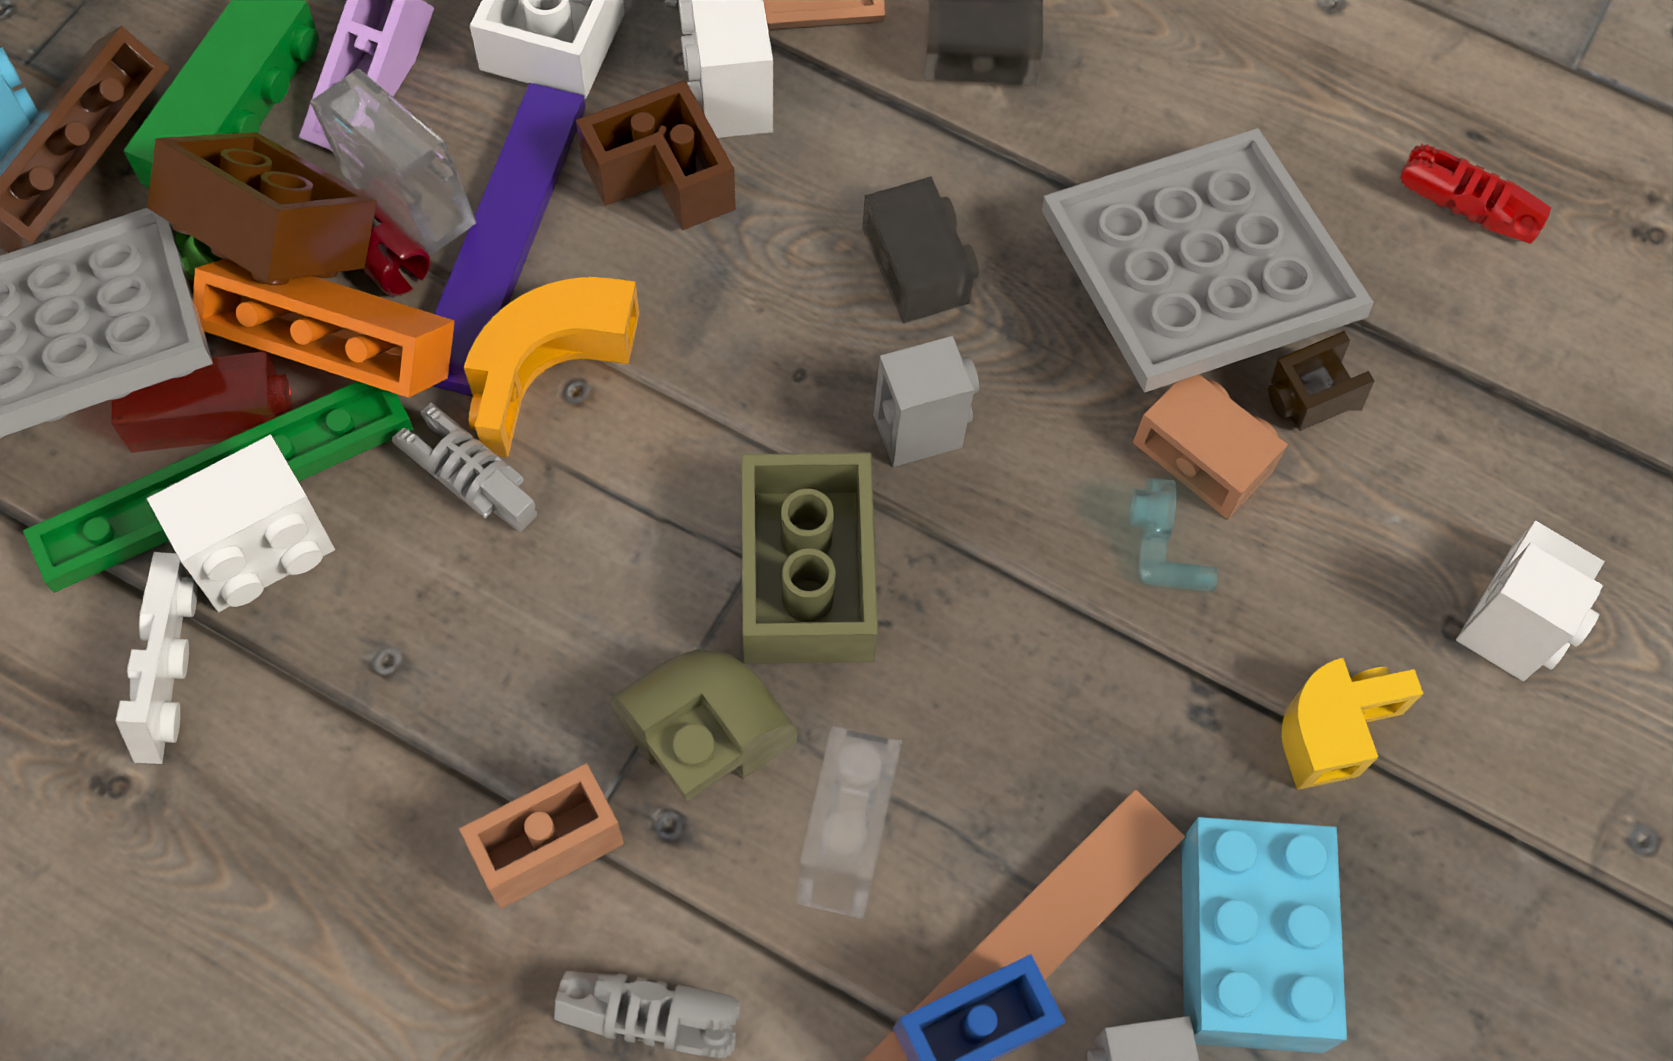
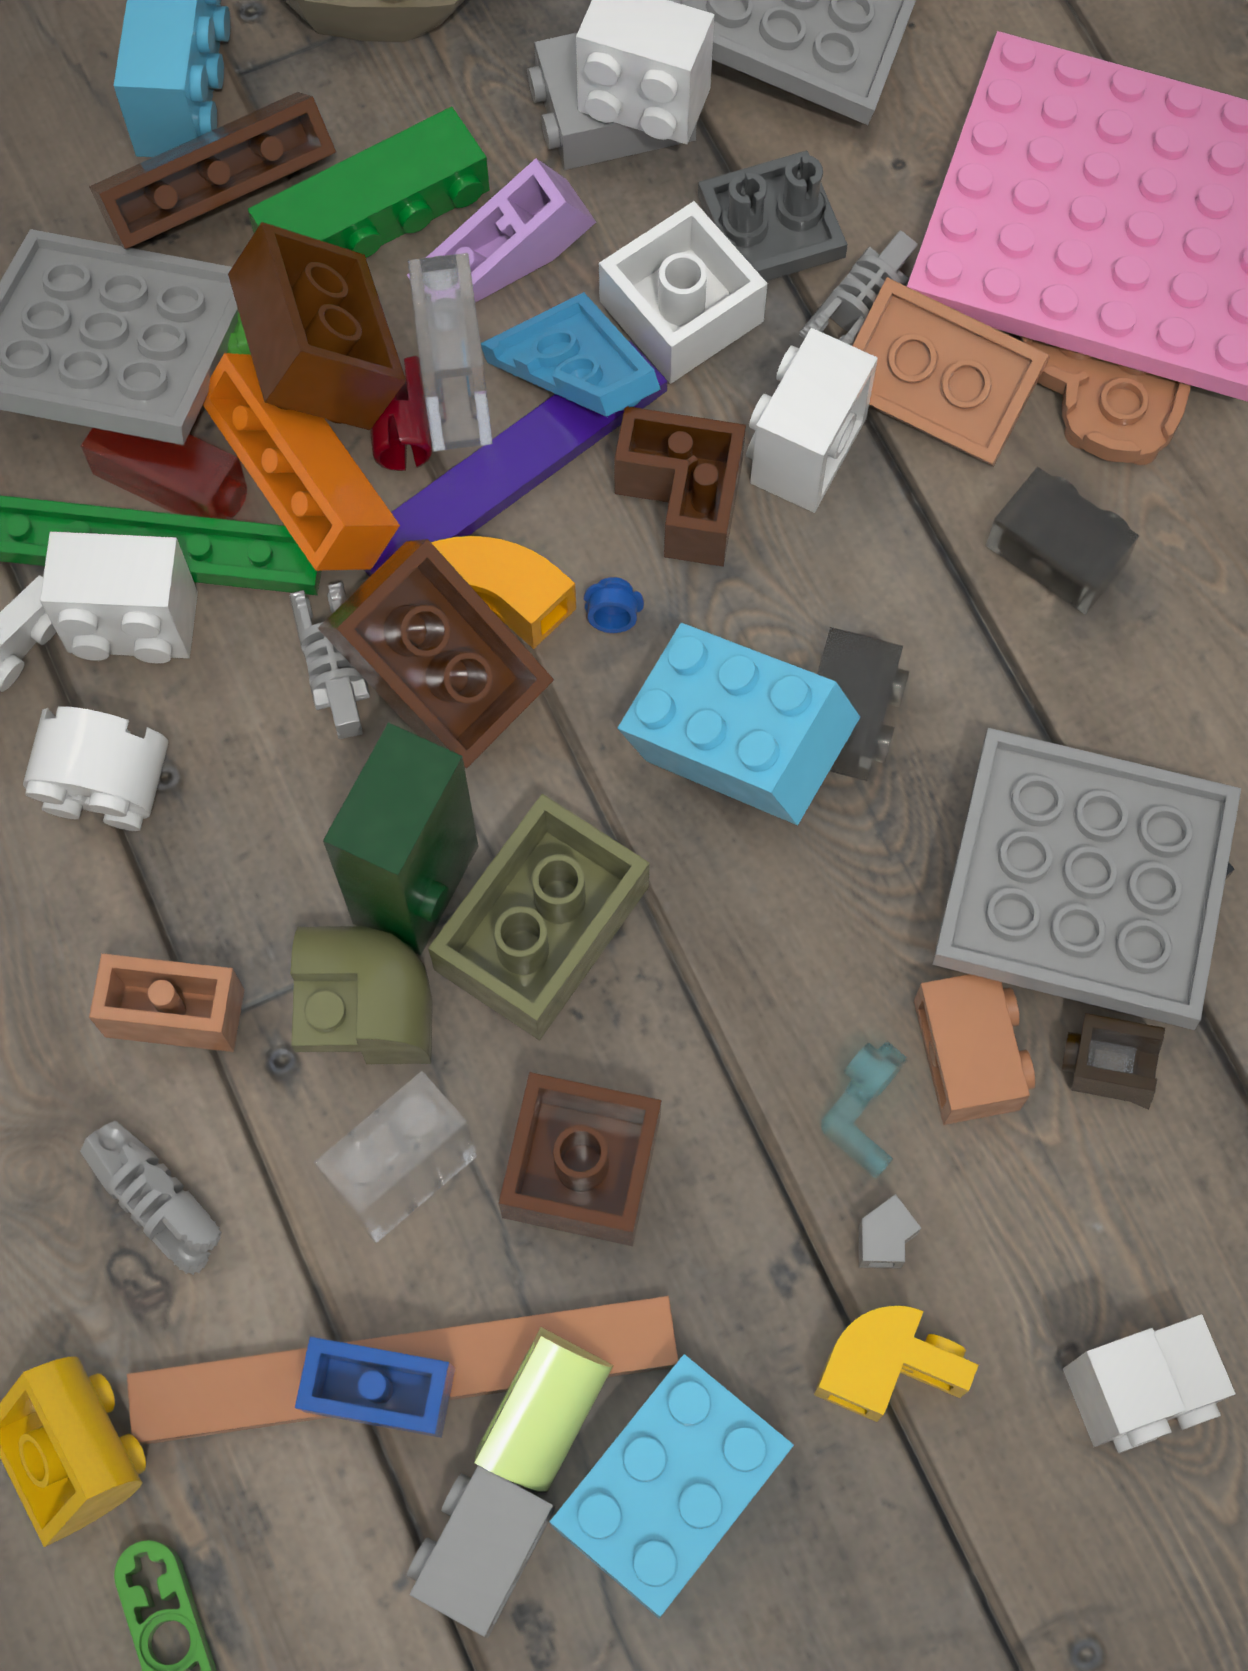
camera: 40 degrees right, 5 degrees up
(325, 681) = (94, 765): none -> white brick
(508, 108) = (575, 356): none -> dark azure wing
(565, 399) = (436, 651): none -> reddish brown brick
(666, 546) = (403, 837): none -> dark green brick
(671, 288) = (612, 605): none -> blue plate
(848, 299) = (740, 722): none -> medium azure brick
(924, 400) = (738, 846): light grey brick -> none
(990, 725) = (580, 1159): none -> reddish brown brick
(1111, 951) = (542, 1412): none -> yellowish green brick
(1257, 627) = (885, 1235): none -> light grey piece

